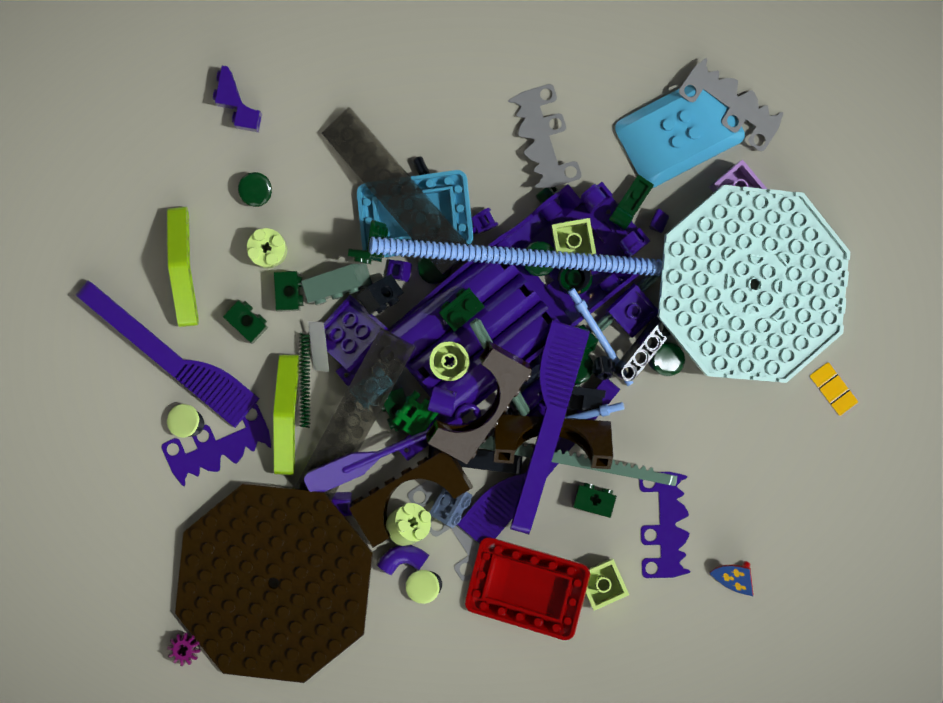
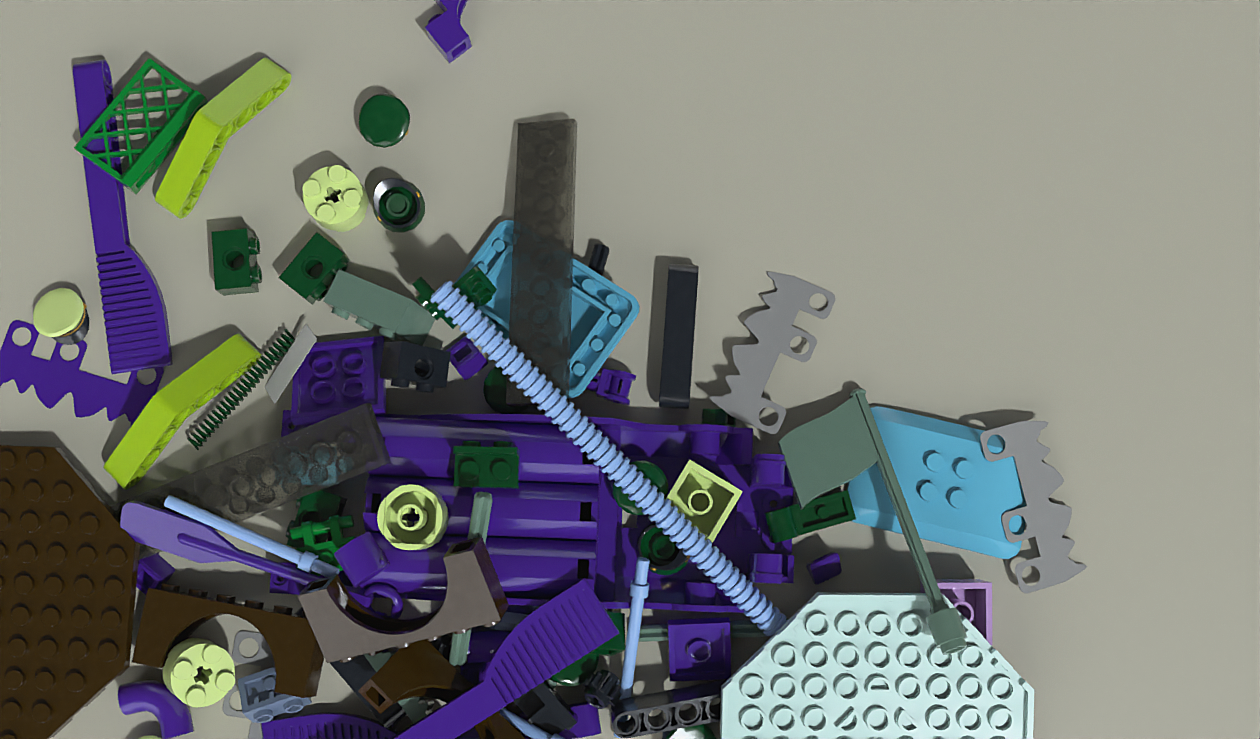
camera: 35 degrees right, 5 degrees down
(155, 295) = (159, 146): none -> green fence
(299, 225) = (398, 205): none -> dark green piece
(414, 428) = (306, 561): none -> light blue bar
(493, 170) = (678, 336): none -> black beam
(618, 159) = (837, 451): none -> sand green flag

